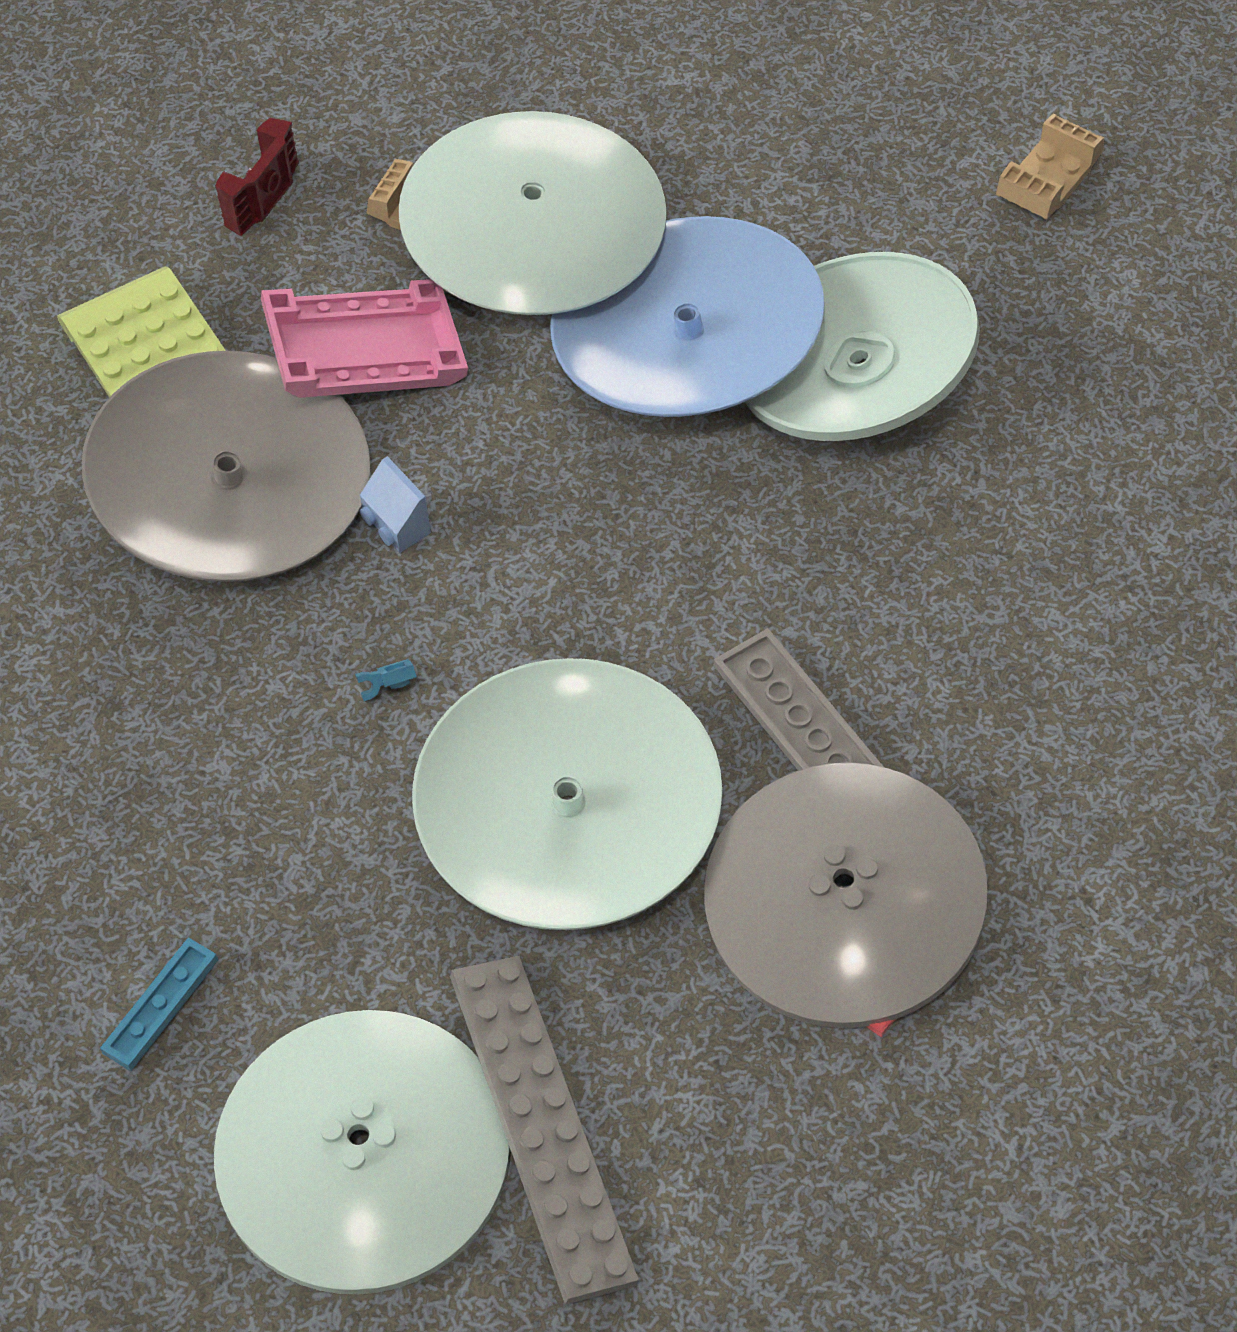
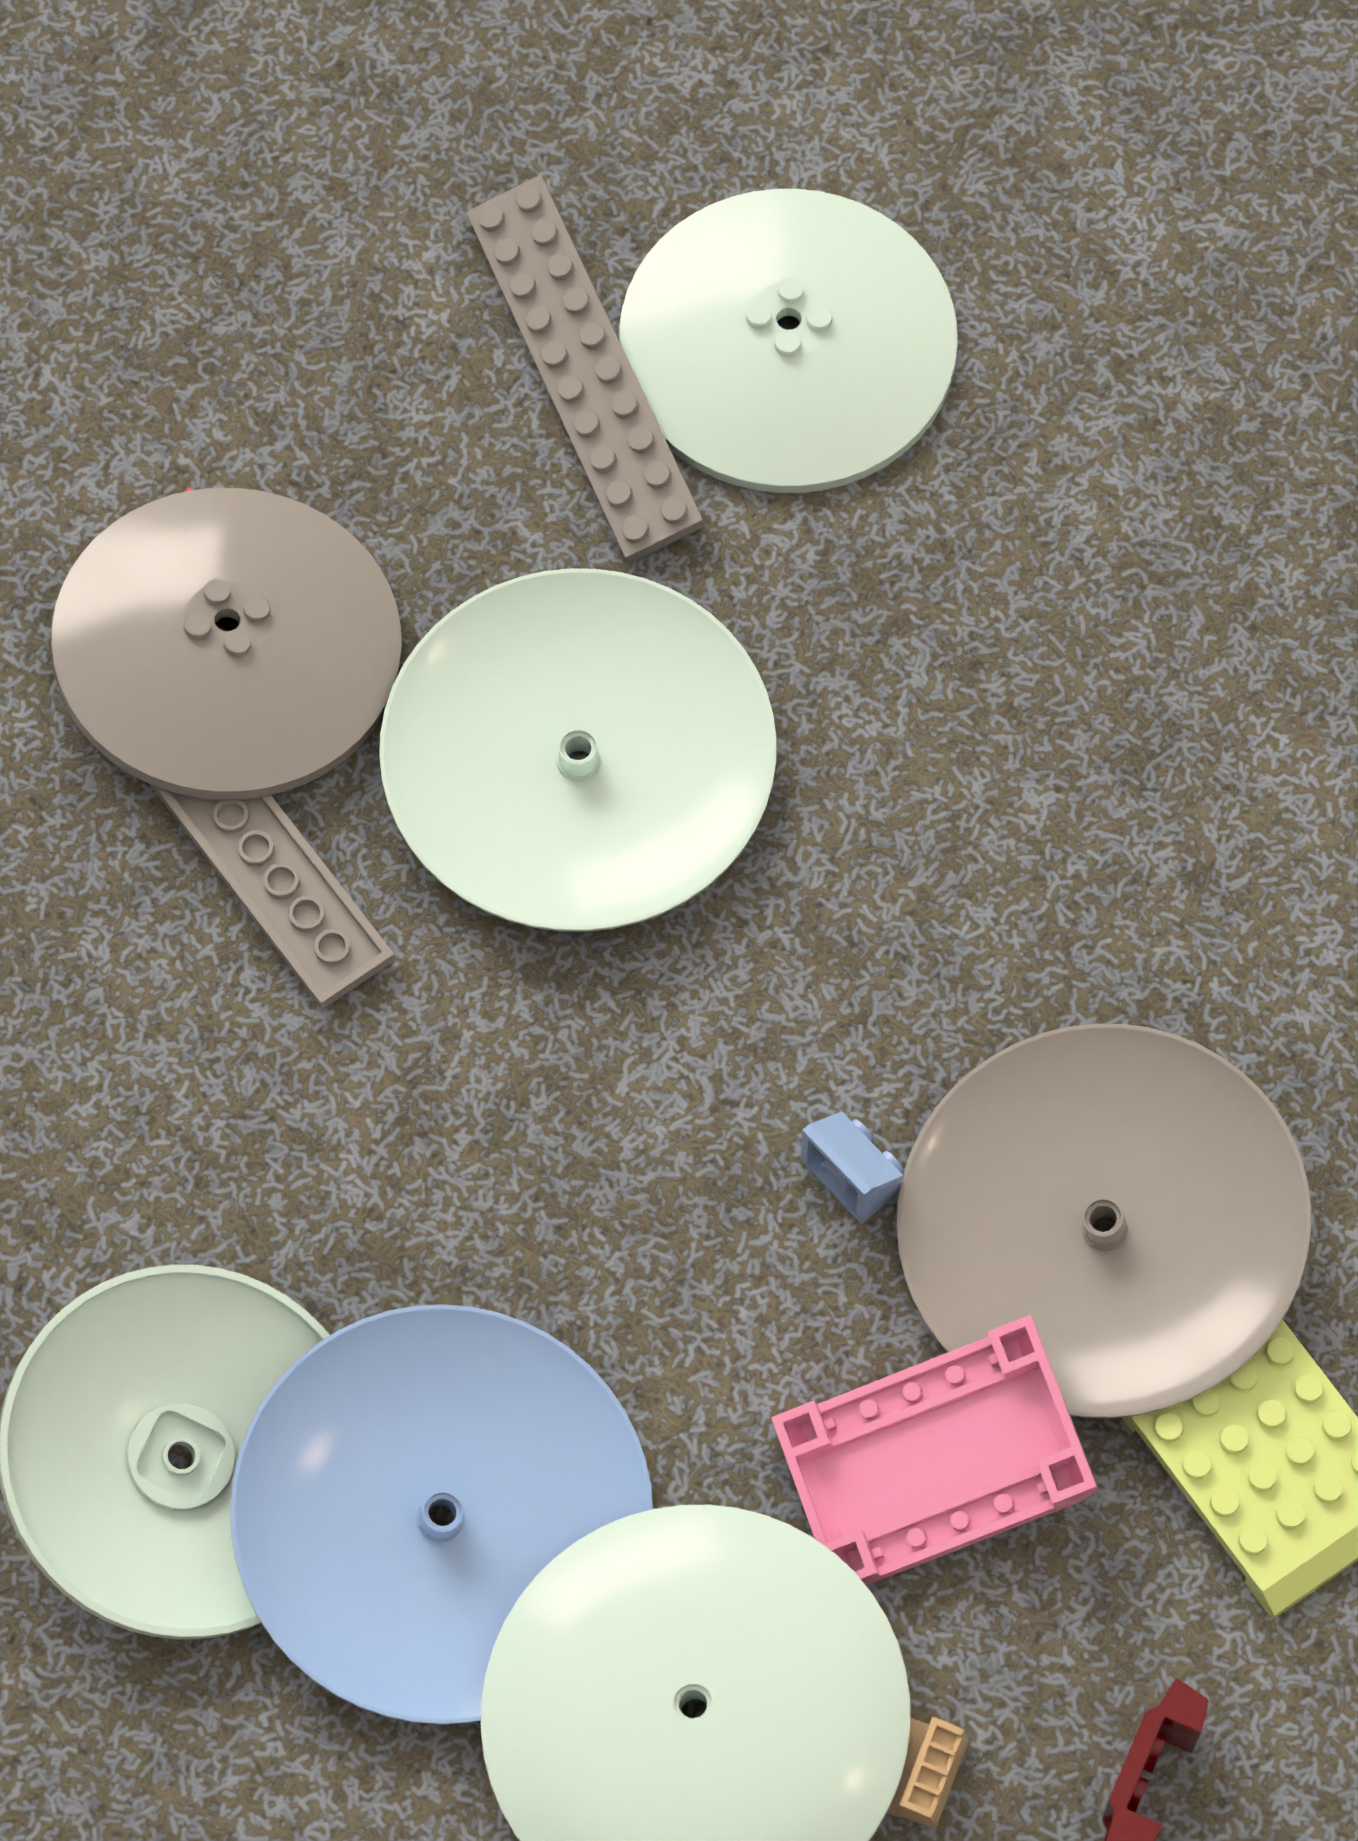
camera: 175 degrees right, 10 degrees up
(159, 1004) = (1051, 483): dark azure plate -> none
(392, 675) = (824, 918): dark azure plate -> none

